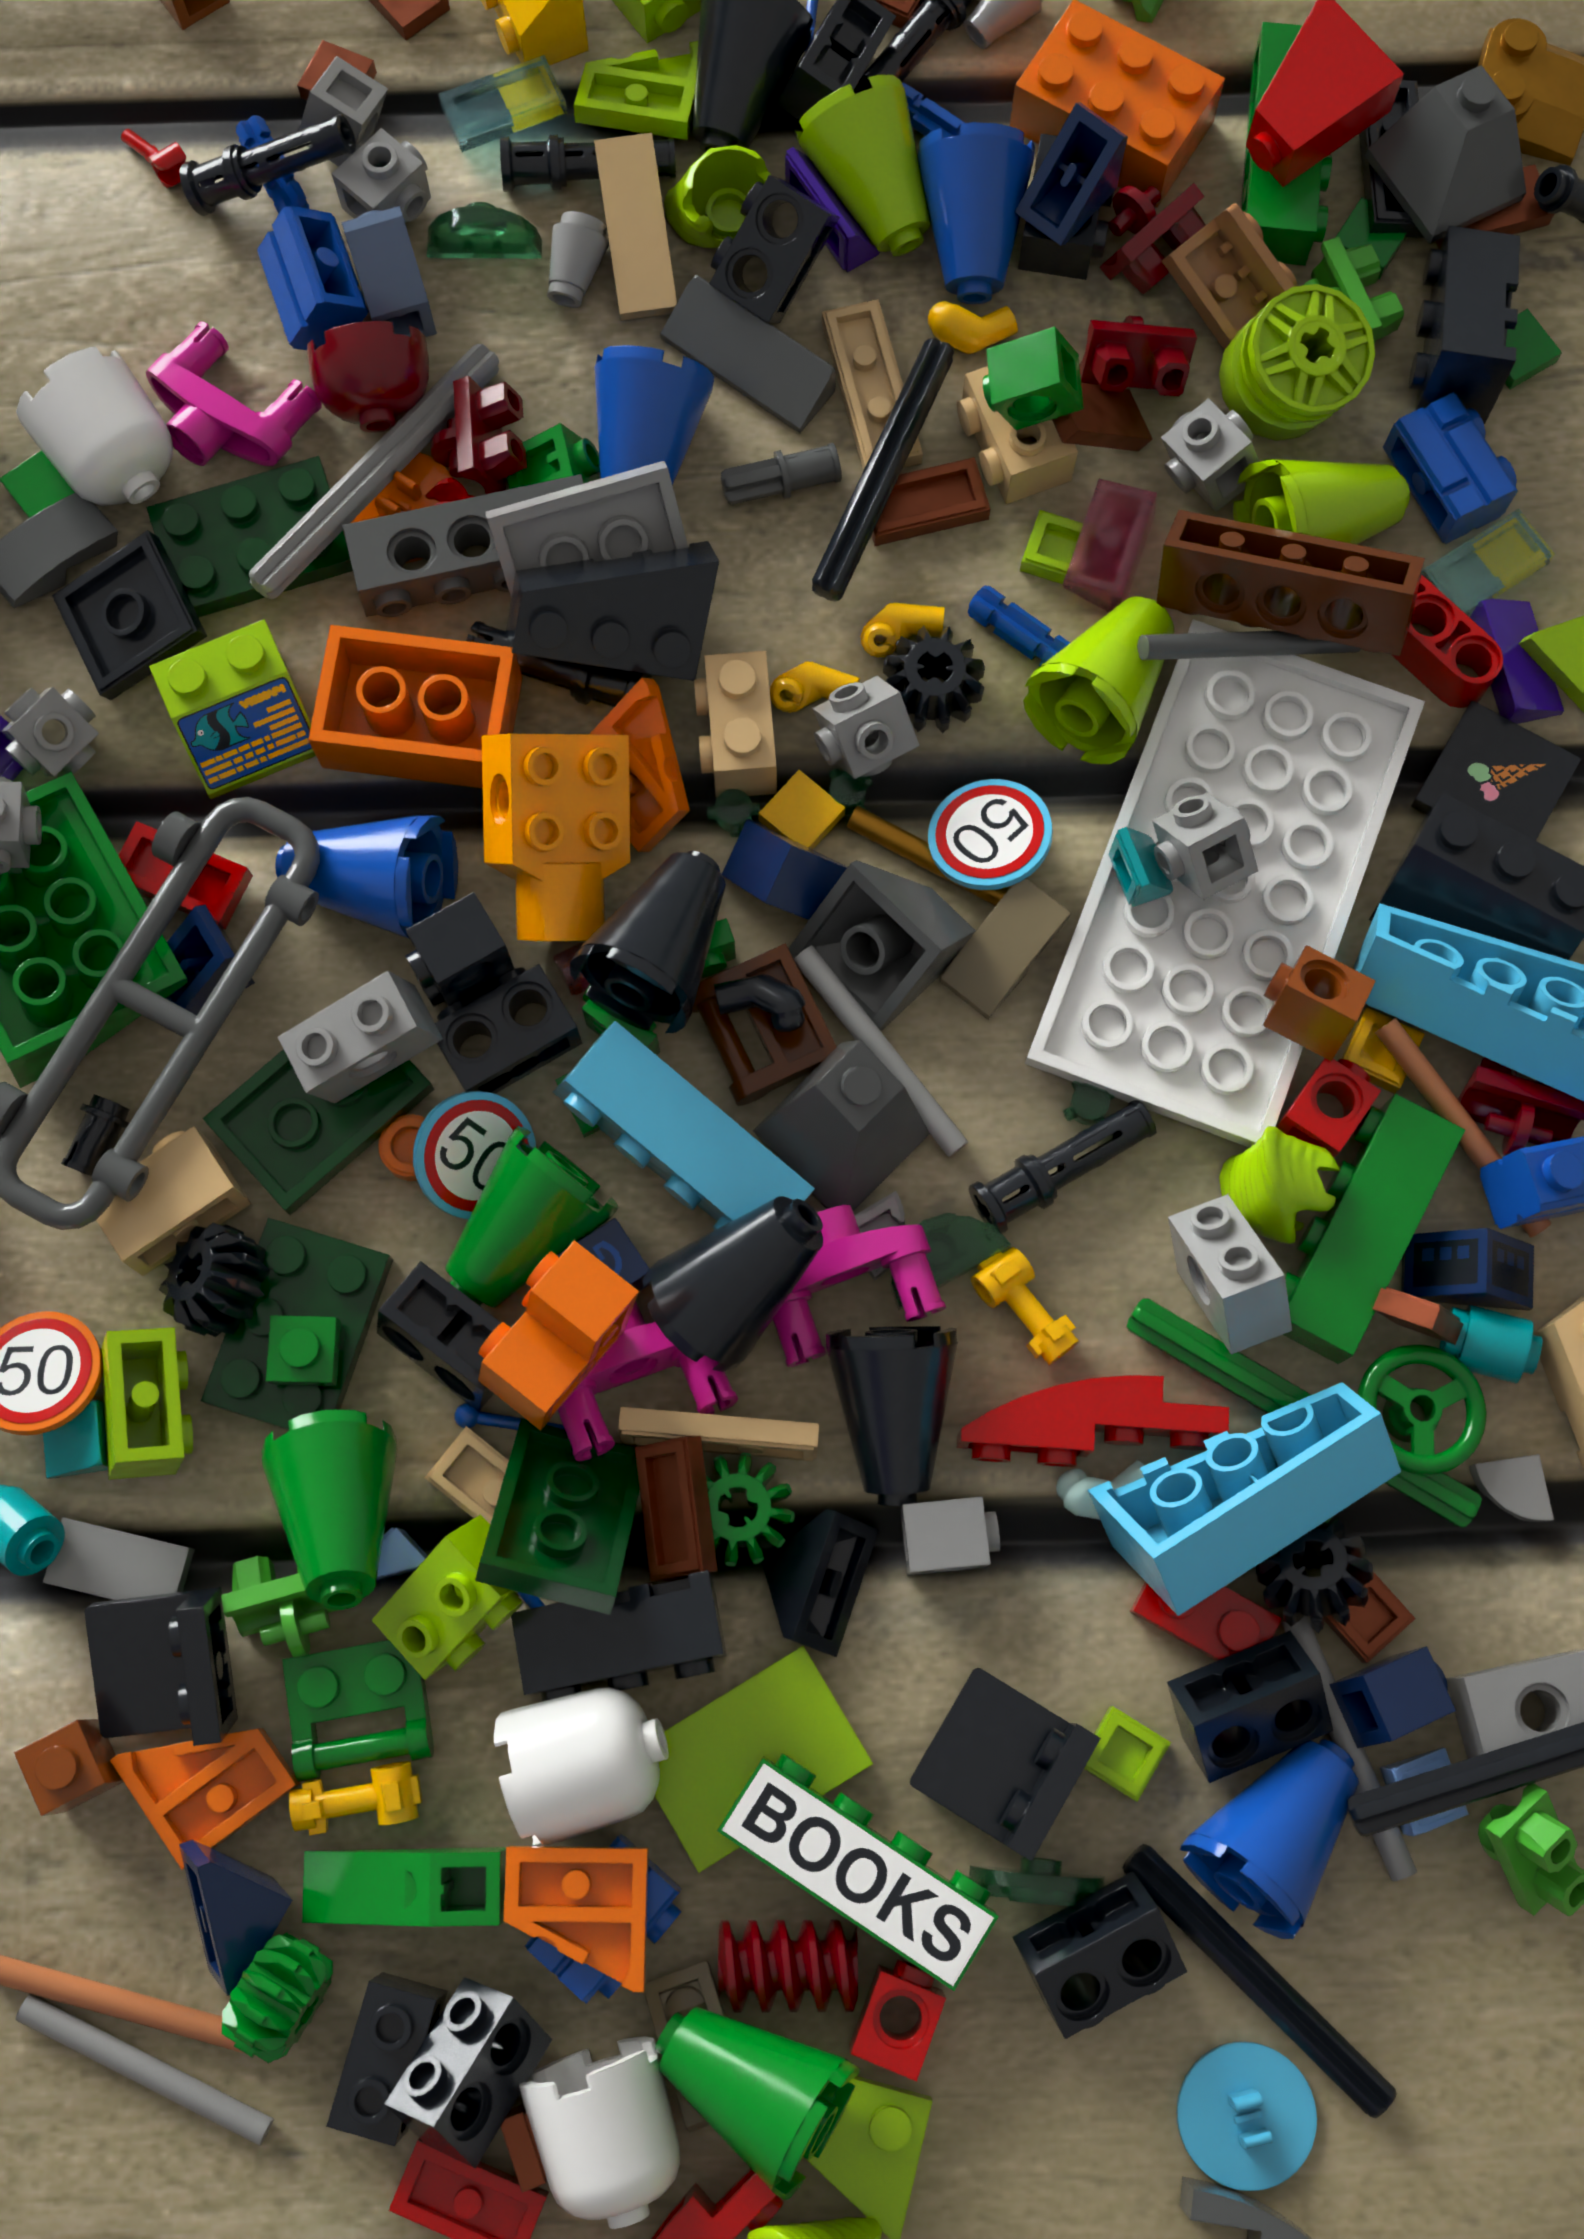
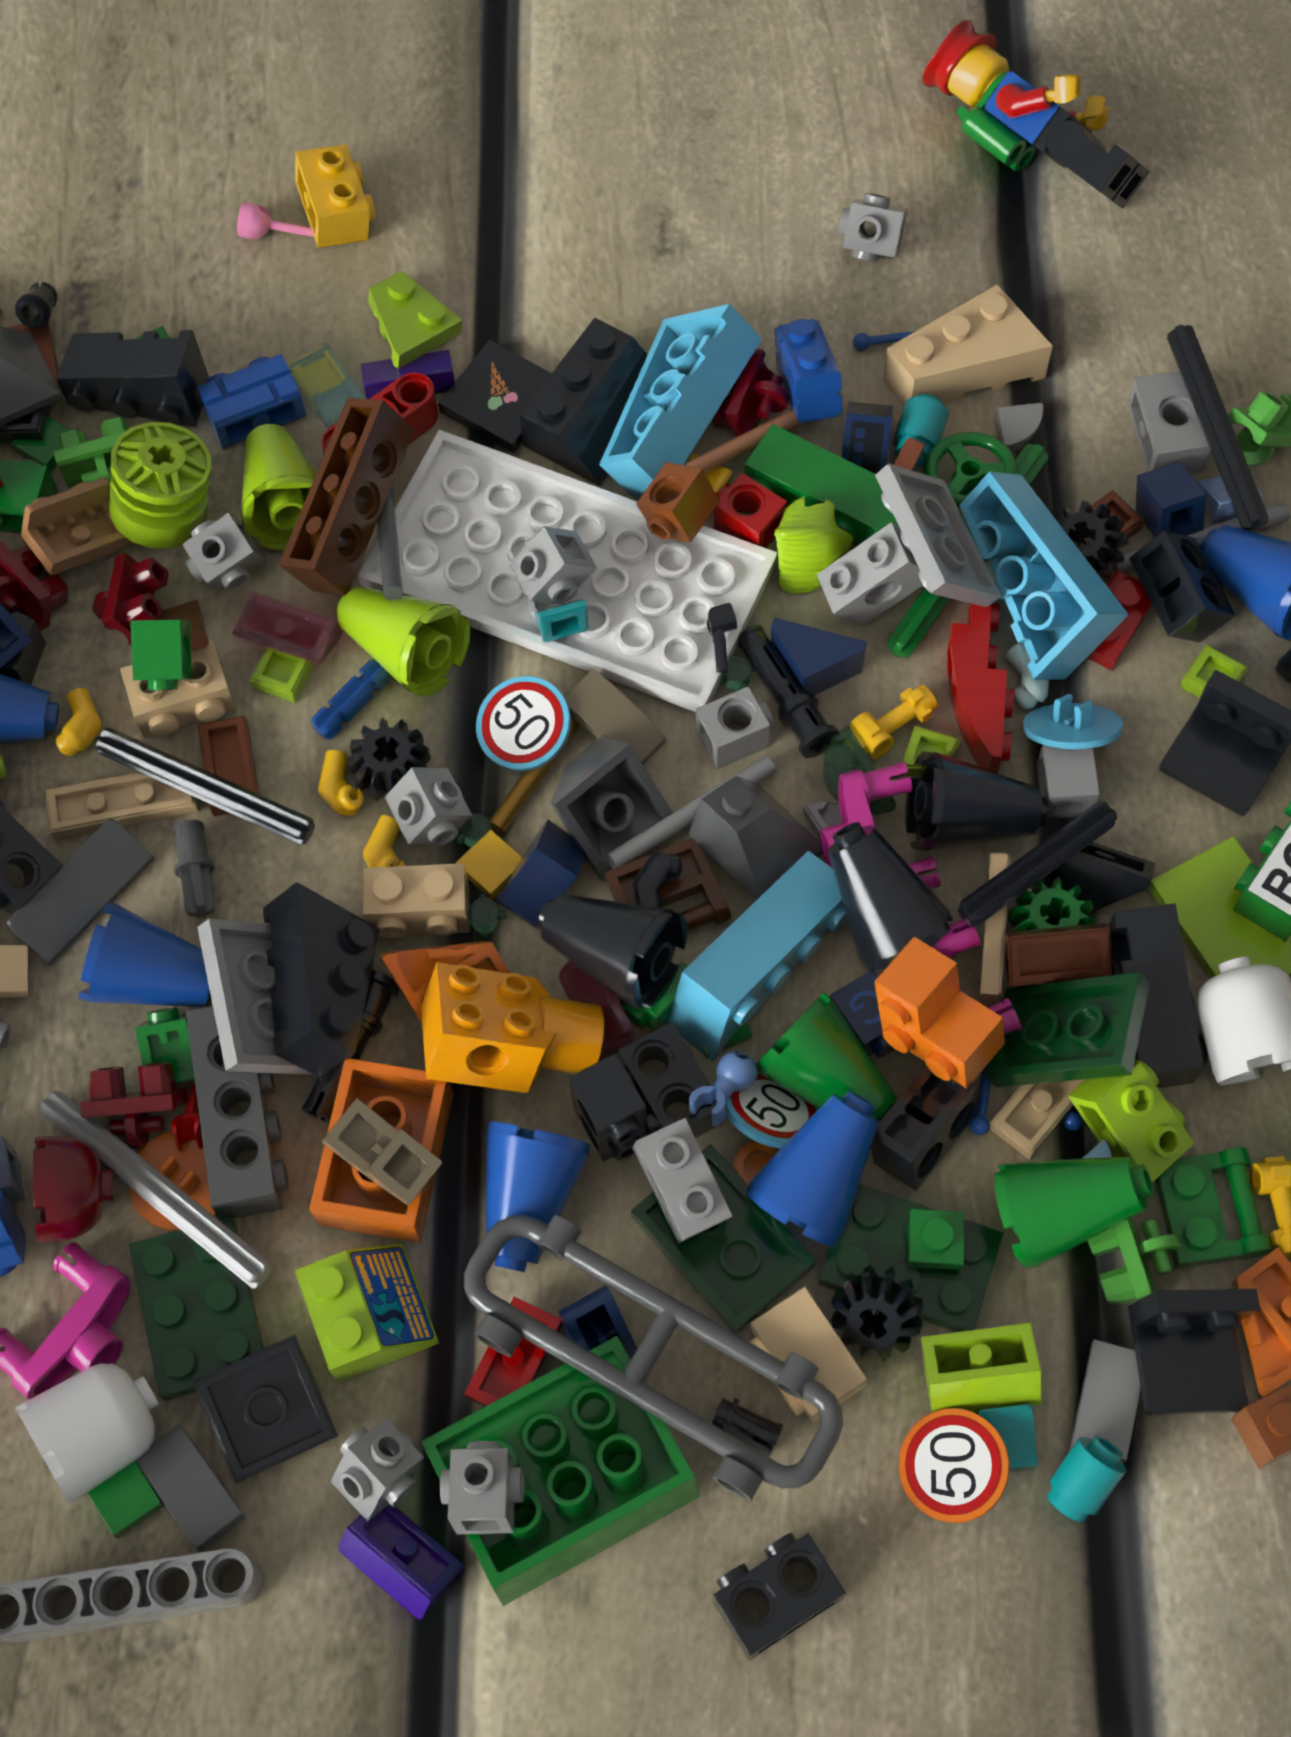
camera: 85 degrees left, 10 degrees down
(369, 1197) = (819, 1169): none -> blue cone
(392, 695) = (382, 1152): none -> dark tan slope
(500, 1097) = (735, 1073): none -> medium blue arm
(800, 1483) = (1037, 864): none -> black axle
(986, 1355) = (928, 741): none -> lime tile
(1006, 1071) = (732, 745): none -> light grey brick
(1021, 1544) = (1072, 725): none -> medium azure piece
(1108, 1199) = (817, 656): none -> dark blue slope
(1146, 1067) = (721, 620): none -> black hand
(1276, 1343) = (936, 536): none -> light grey plate

